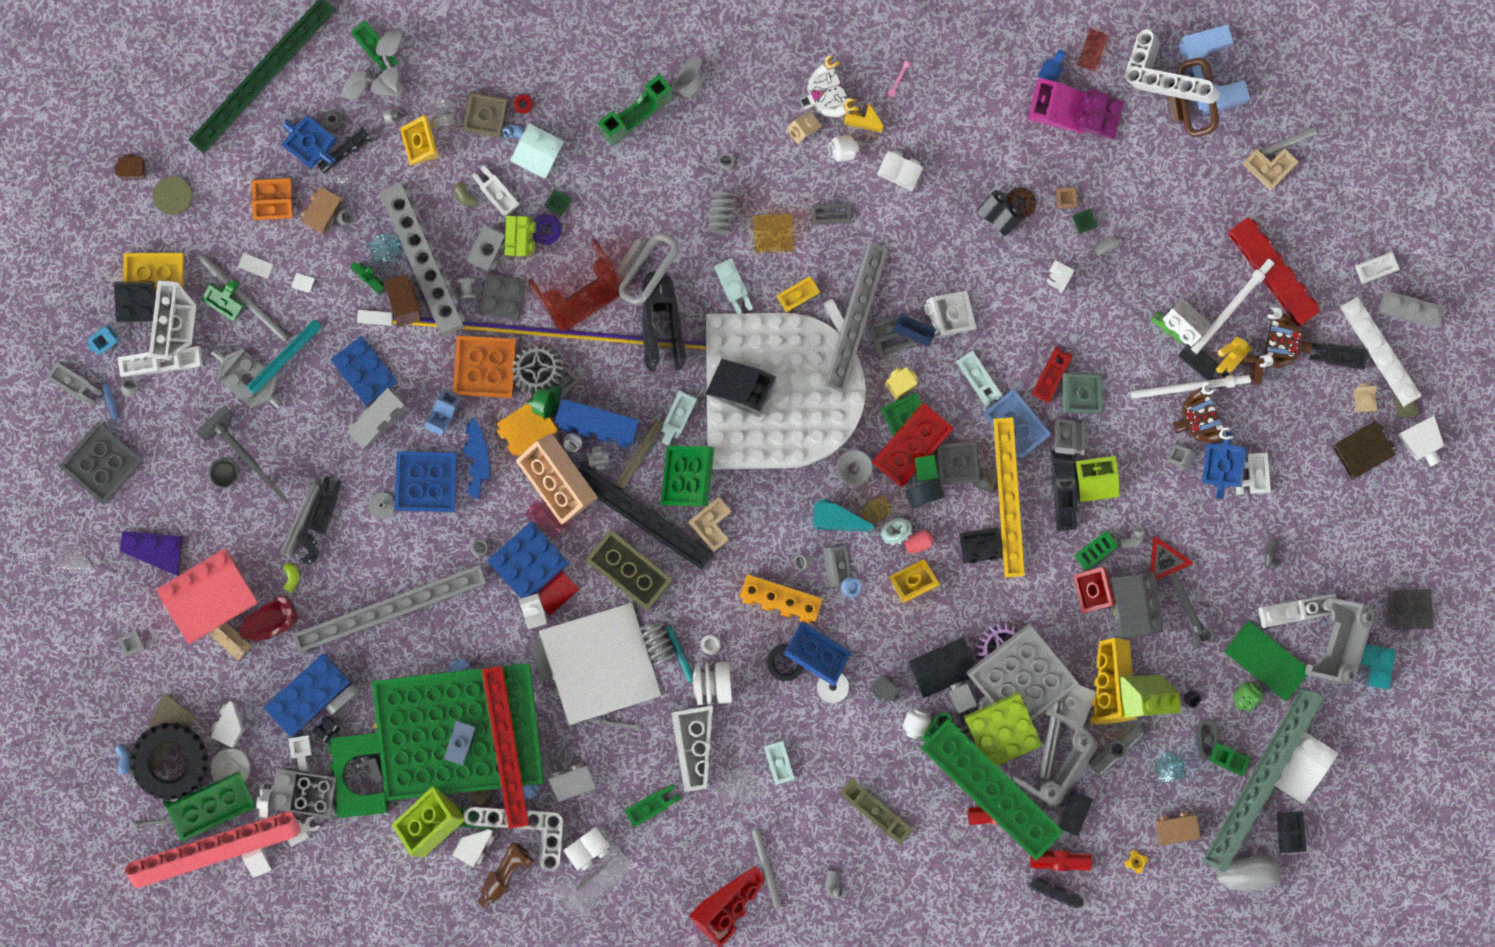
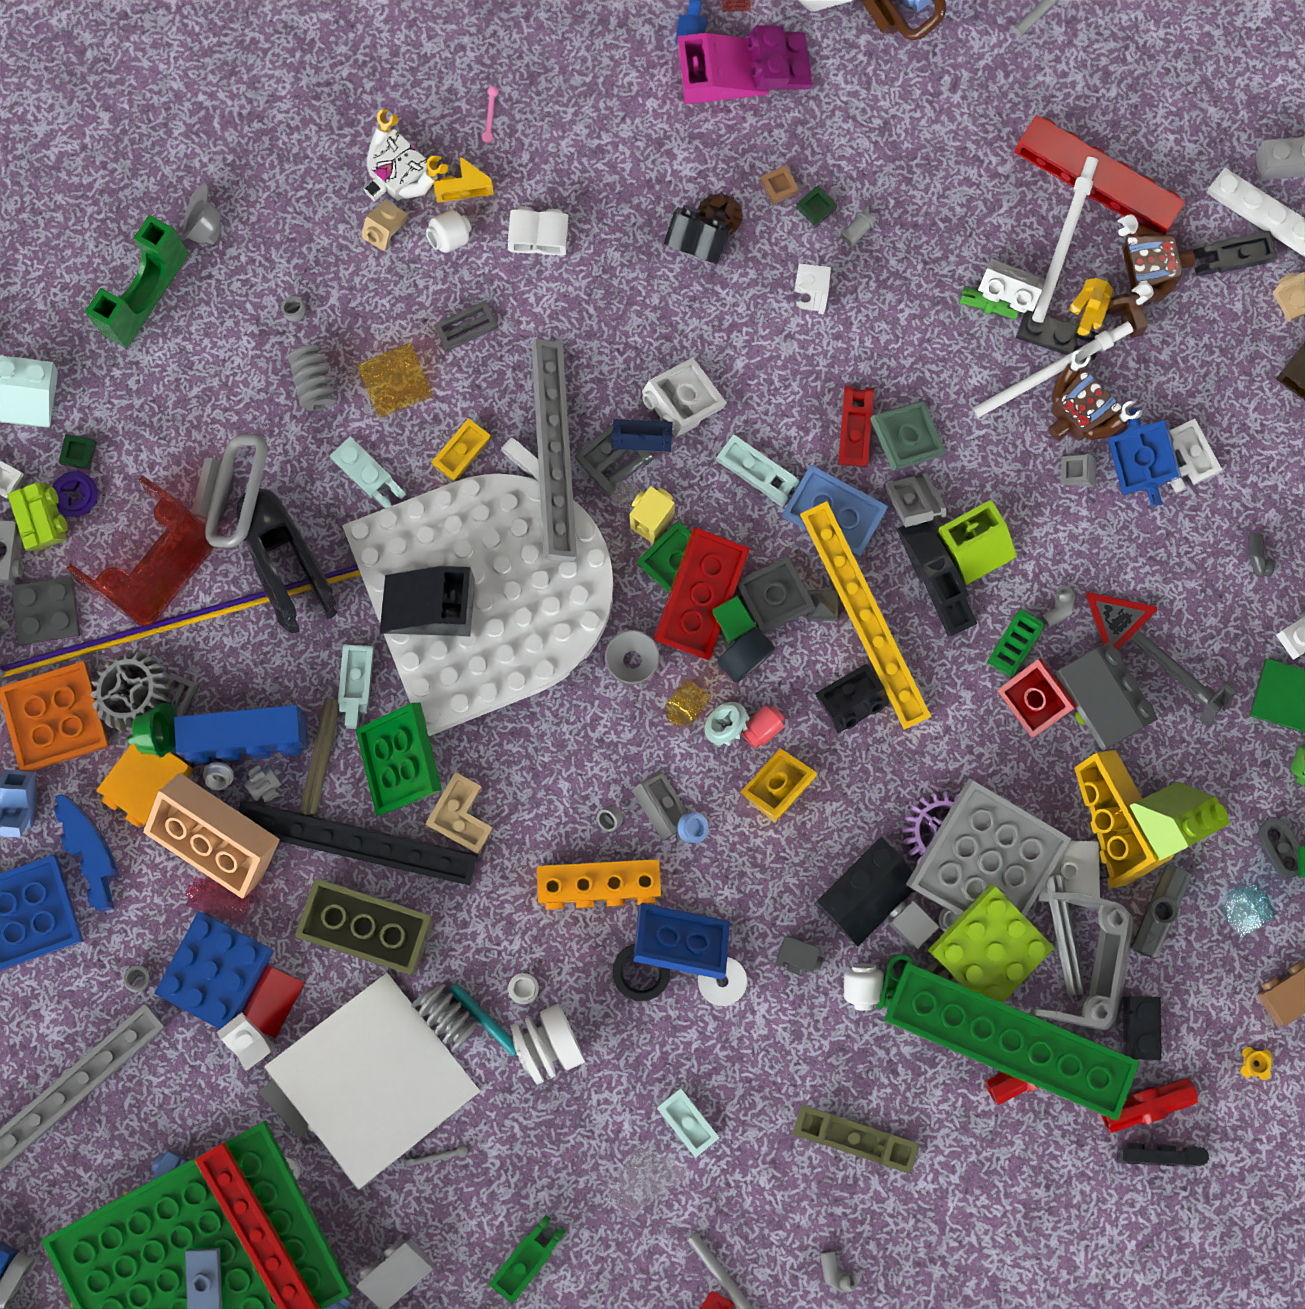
camera: 20 degrees left, 5 degrees down
(692, 738) = (553, 1146): white wedge -> none
(833, 517) = (632, 737): teal slope -> none
(1196, 698) = (1236, 798): black hinge -> none
(1270, 172) = (1035, 51): tan plate -> none
(1377, 268) = (1234, 120): white plate -> none

